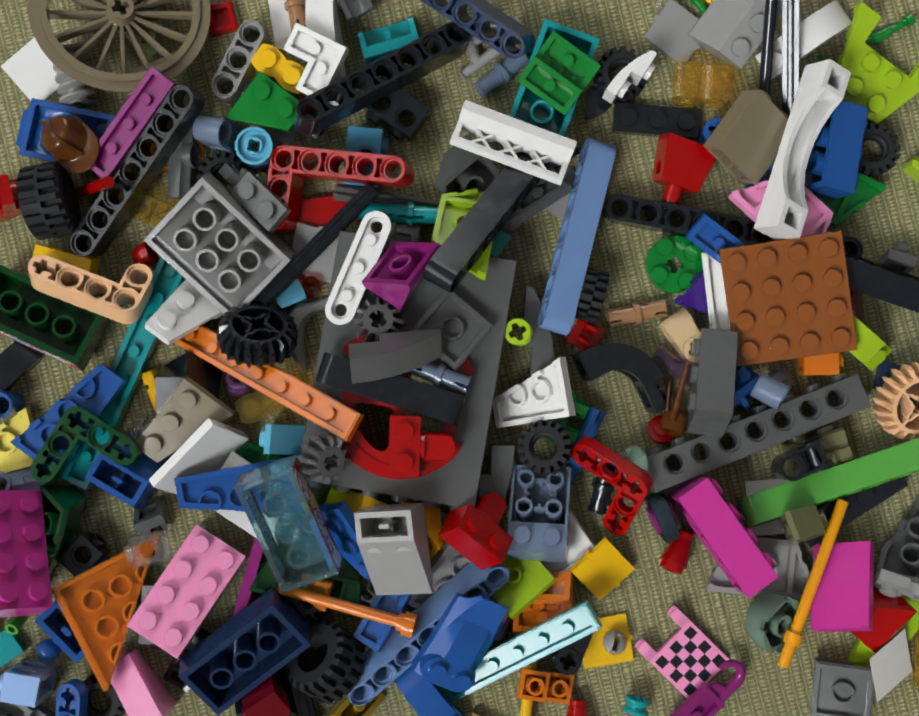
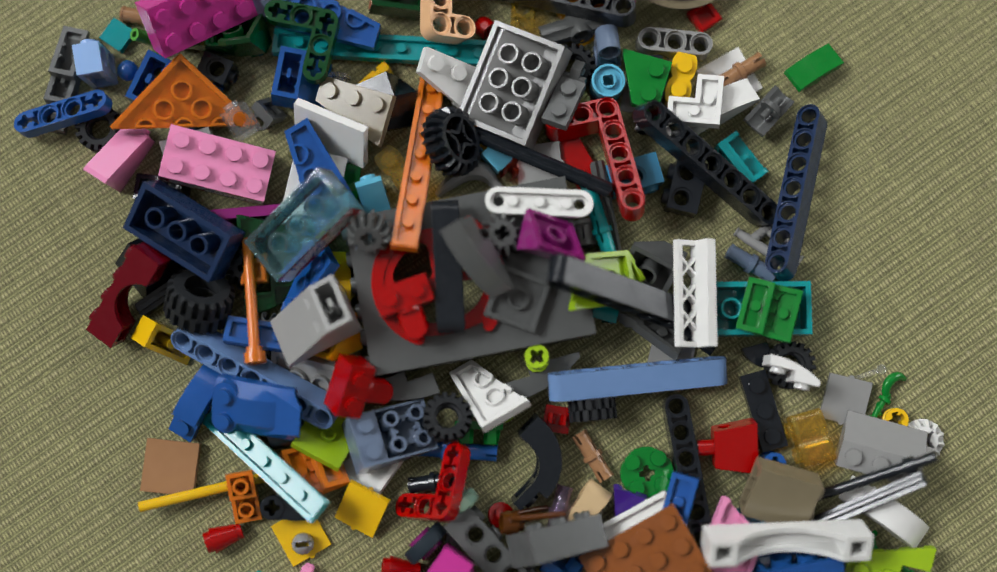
camera: 75 degrees right, 5 degrees down
(236, 387) = (401, 142): medium lavender bush -> none
(442, 376) = (474, 306): sand blue pin -> none

